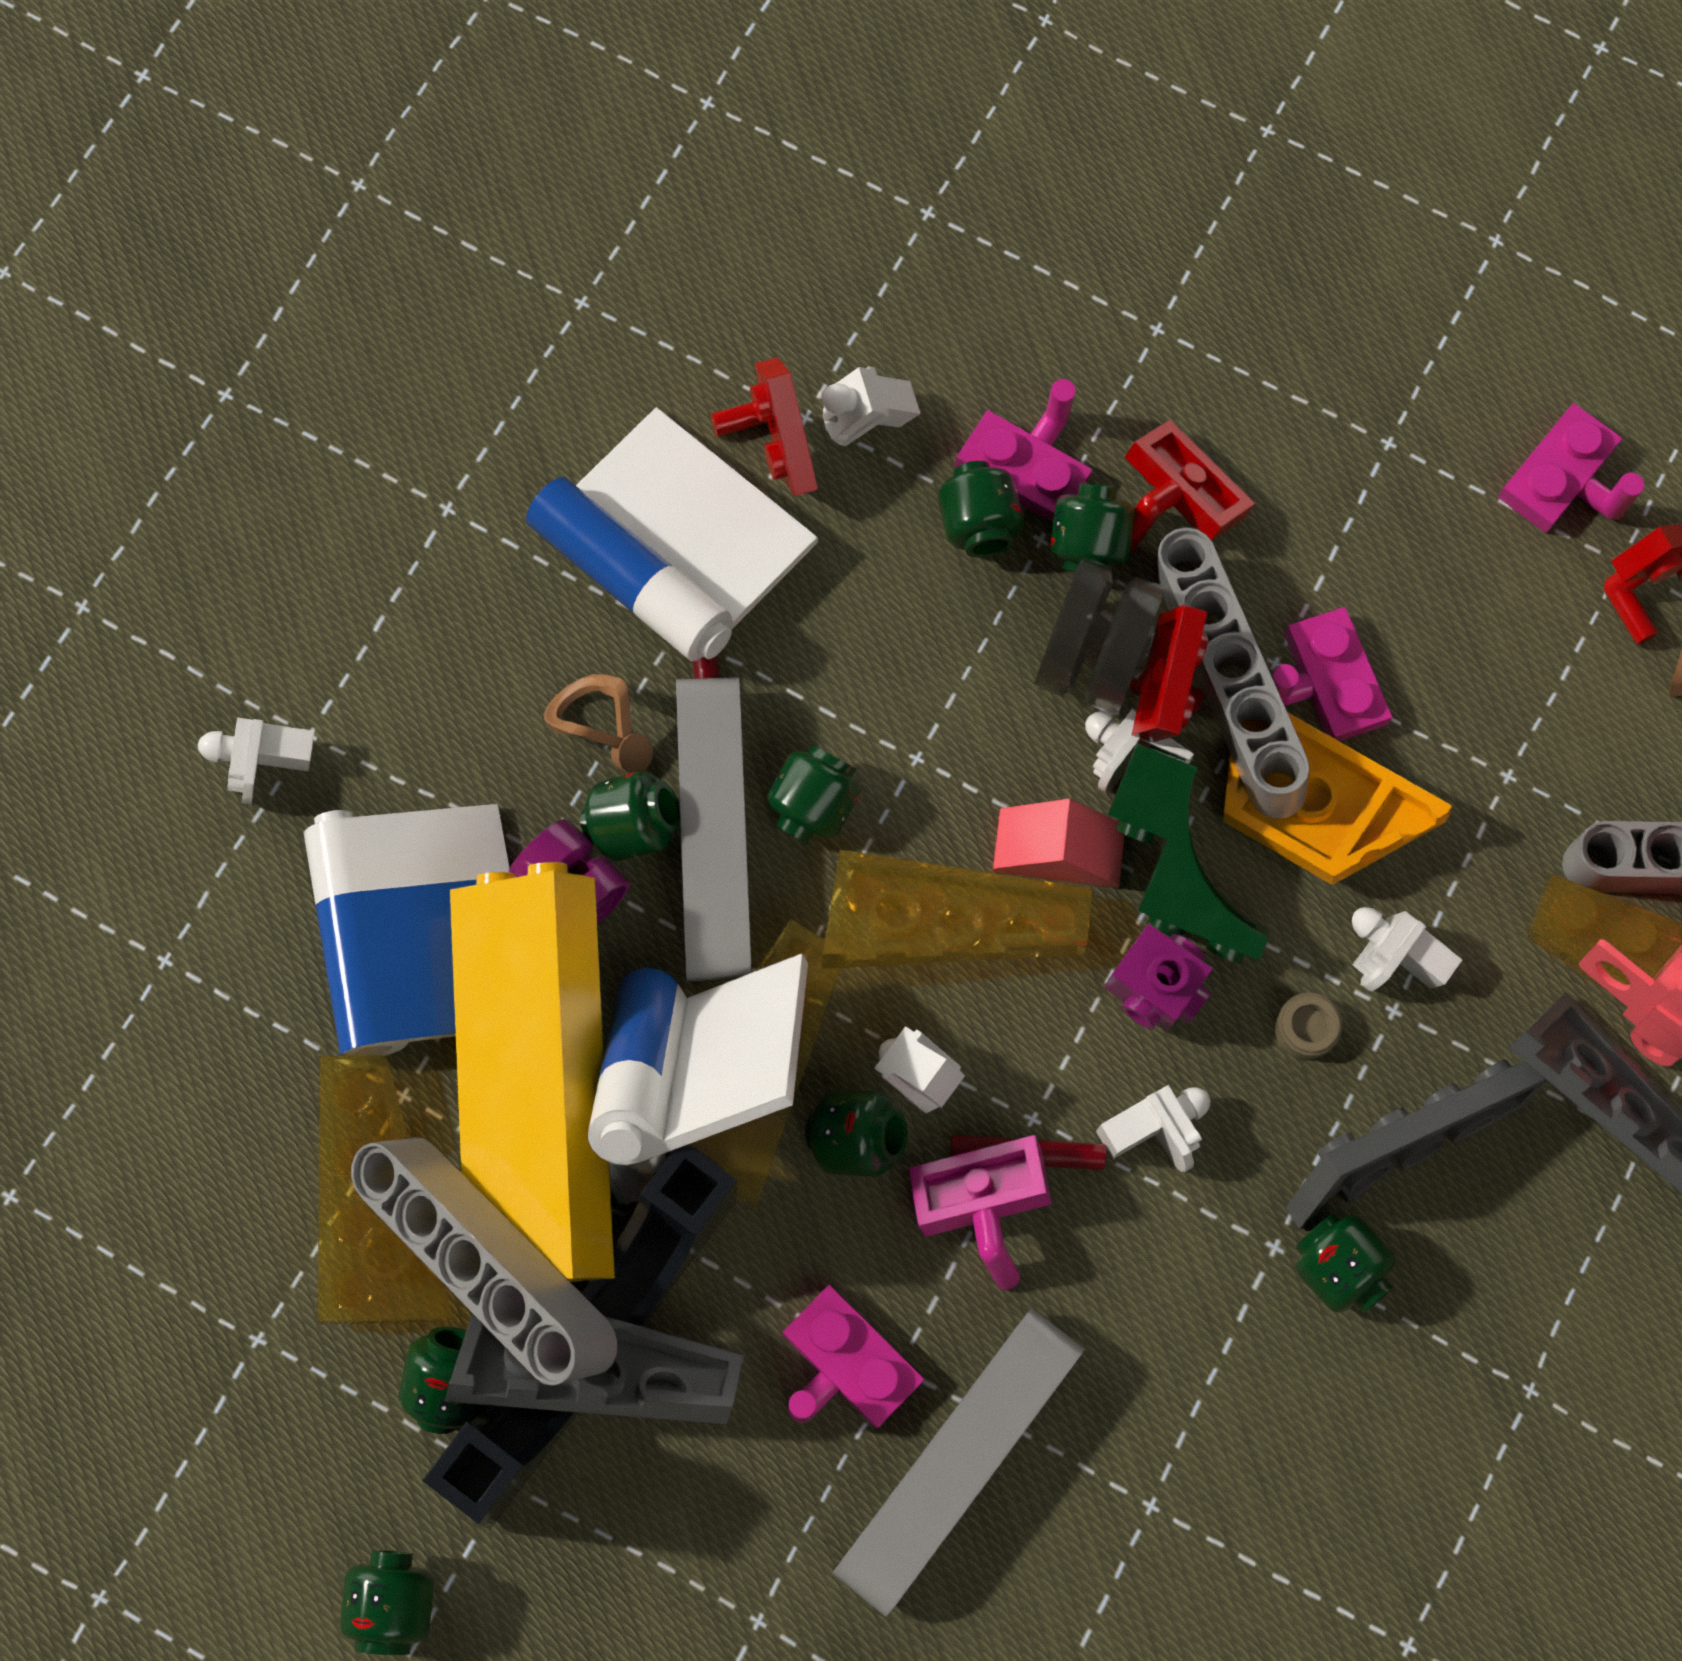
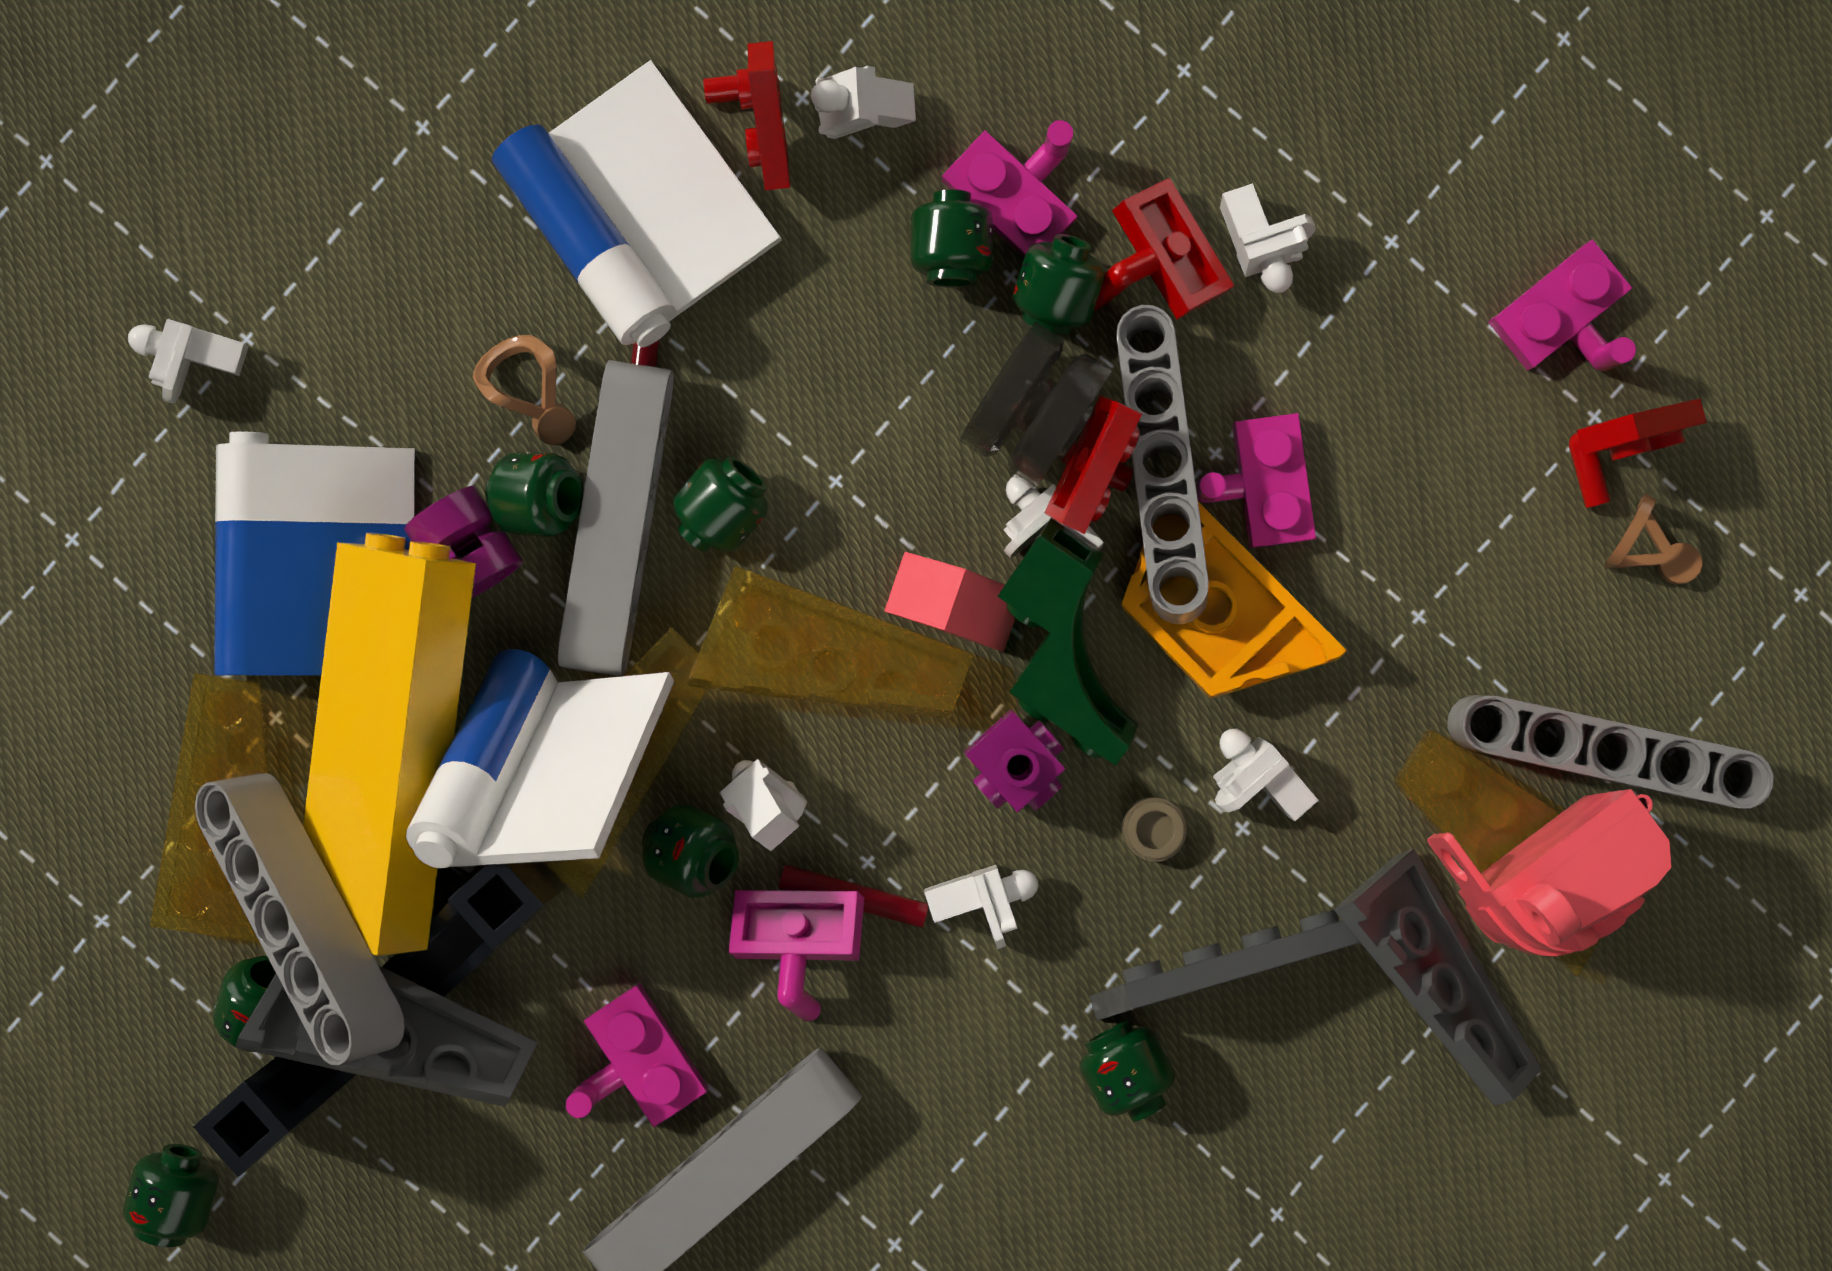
camera: 25 degrees right, 15 degrees up
(1270, 462) = (1264, 246): none -> white piece

